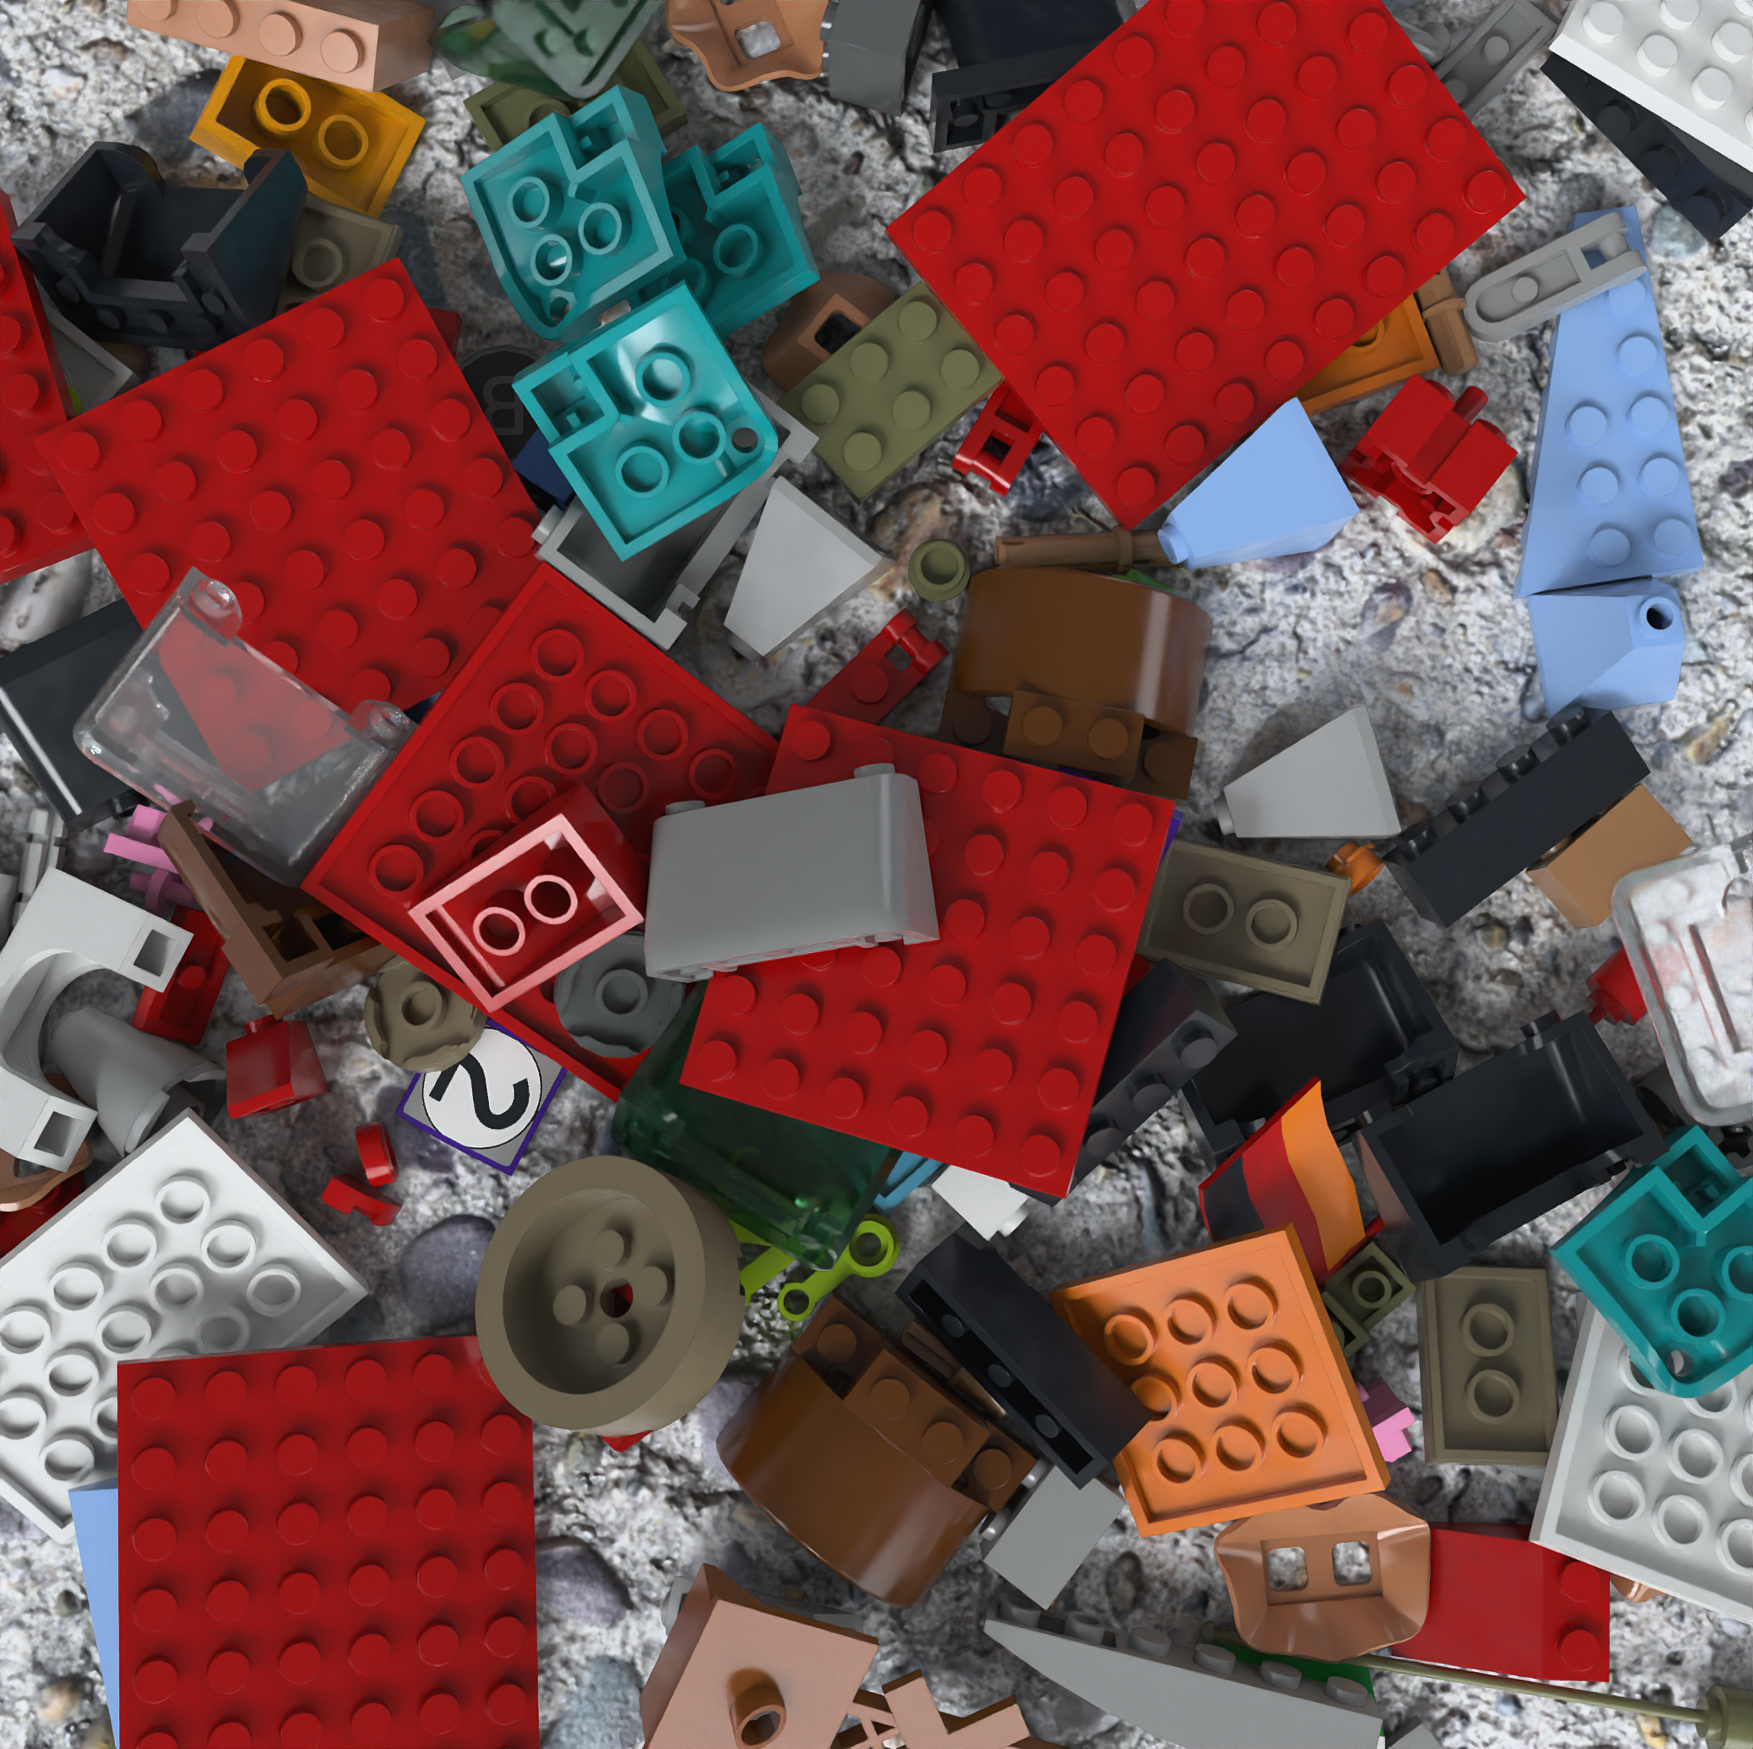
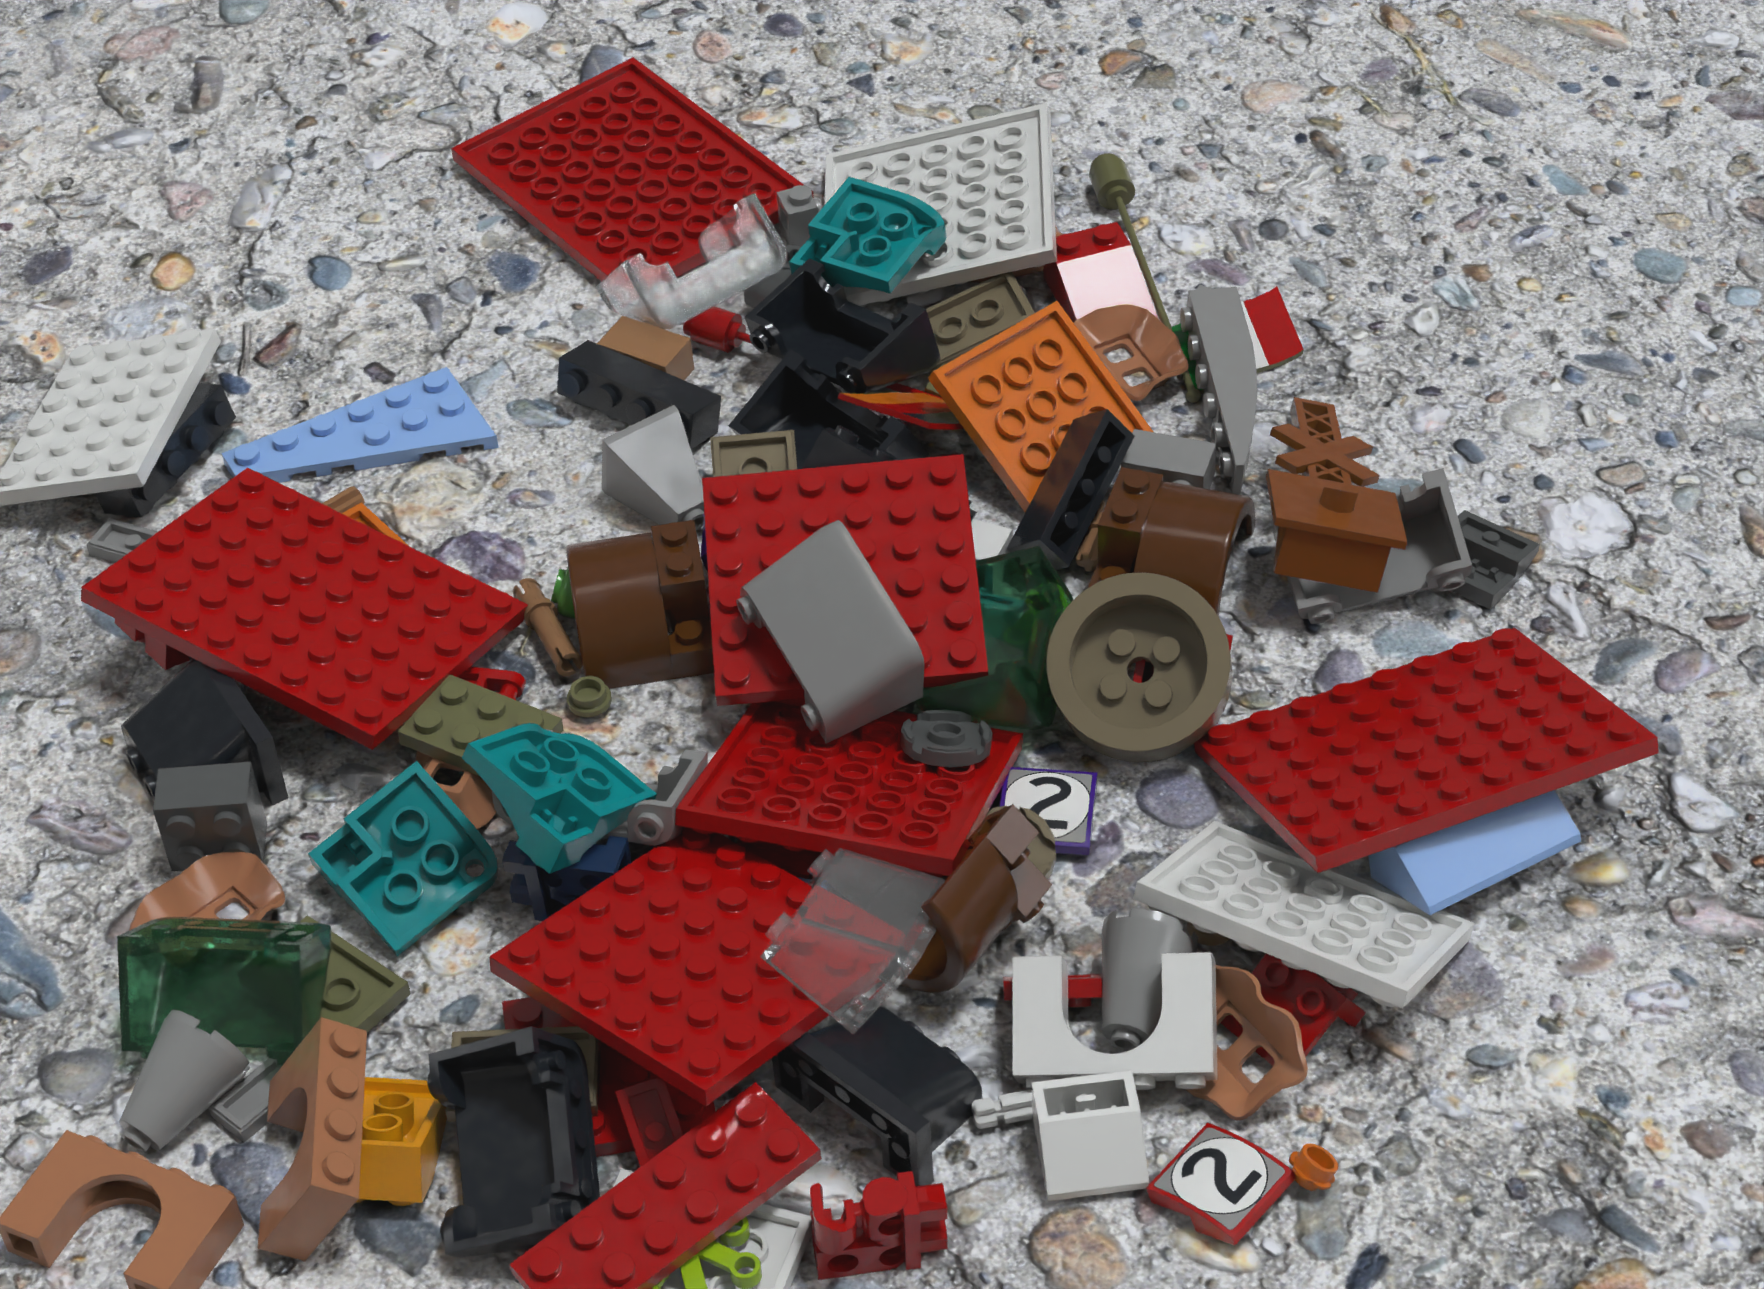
camera: 105 degrees left, 40 degrees down
(142, 845) = (967, 1005): bright pink hips -> none
(272, 1068) = (1087, 897): red slope -> none
(349, 1193) = (1155, 848): red tile -> none
(377, 1153) = (1120, 847): red tile -> none
(536, 899) = (900, 757): red slope -> none
(577, 213) = (412, 924): teal slope -> none
(798, 570) = (626, 730): light grey slope -> none
(870, 683) = (681, 709): red plate -> none
(1264, 500) = (482, 537): light blue slope -> none
(1356, 863) = (702, 456): orange plate -> none
(1430, 456) = (428, 481): red brick -> none
(1551, 280) = (286, 462): light grey plate -> none
(1608, 644) = (510, 381): light blue slope -> none

